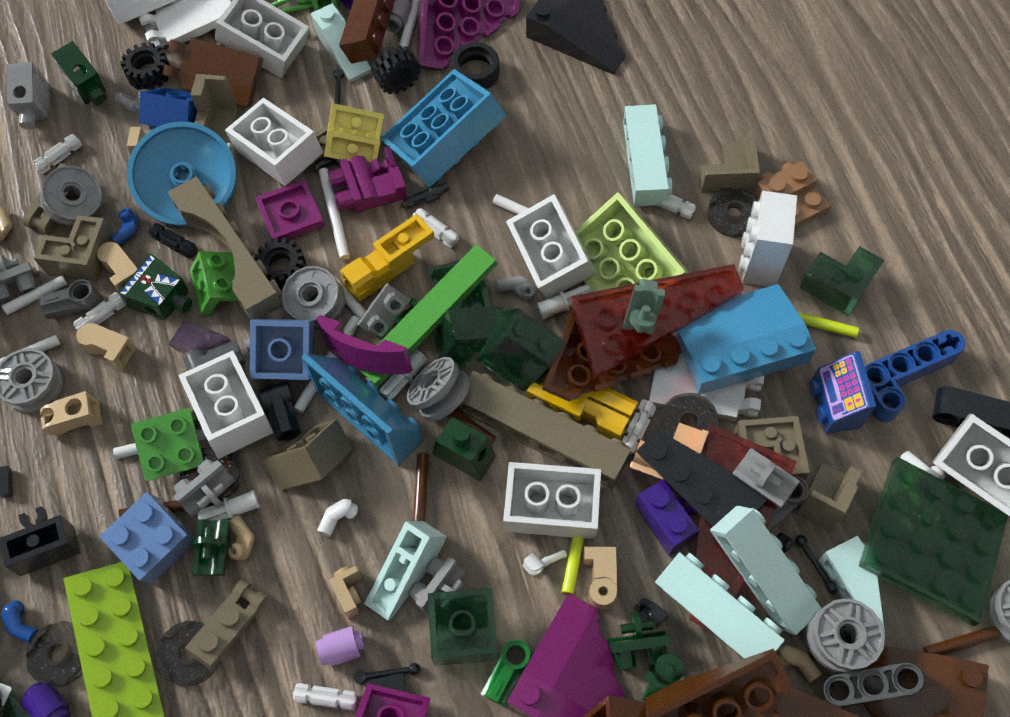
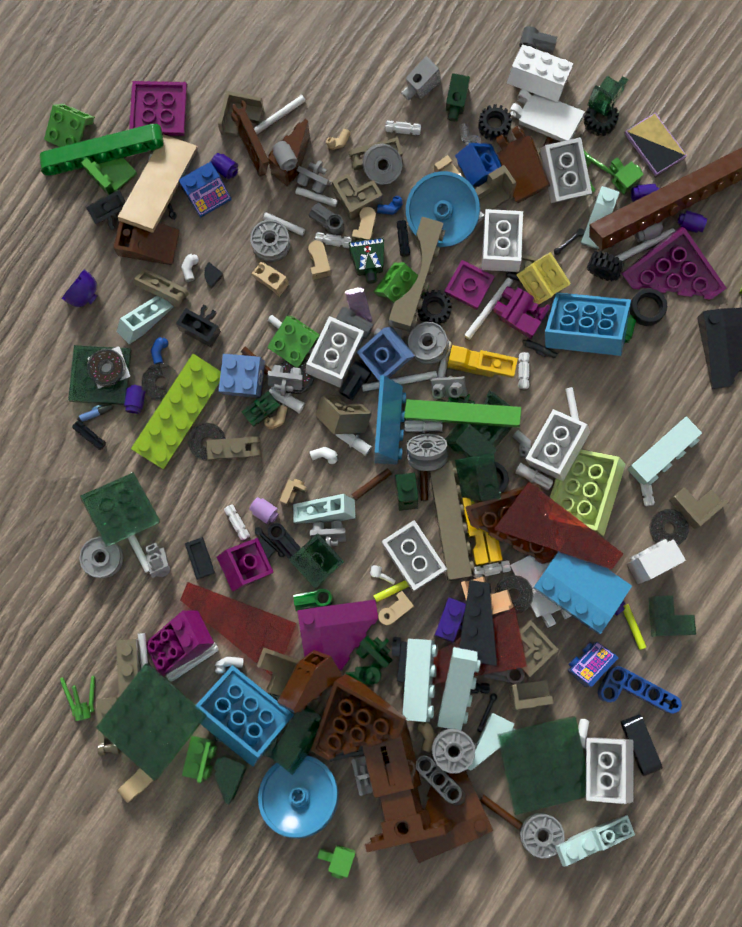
camera: 50 degrees right, 15 degrees up
(353, 467) = (355, 442): none -> white axle
(383, 359) = (418, 412): magenta slope -> none
(404, 650) = (285, 541): none -> black piece
(644, 307) = (548, 527): sand green hips -> none
(679, 618) = (402, 662): none -> black tile
(766, 477) = (502, 656): light grey hips -> none
(799, 181) = (705, 553): medium nougat plate -> none

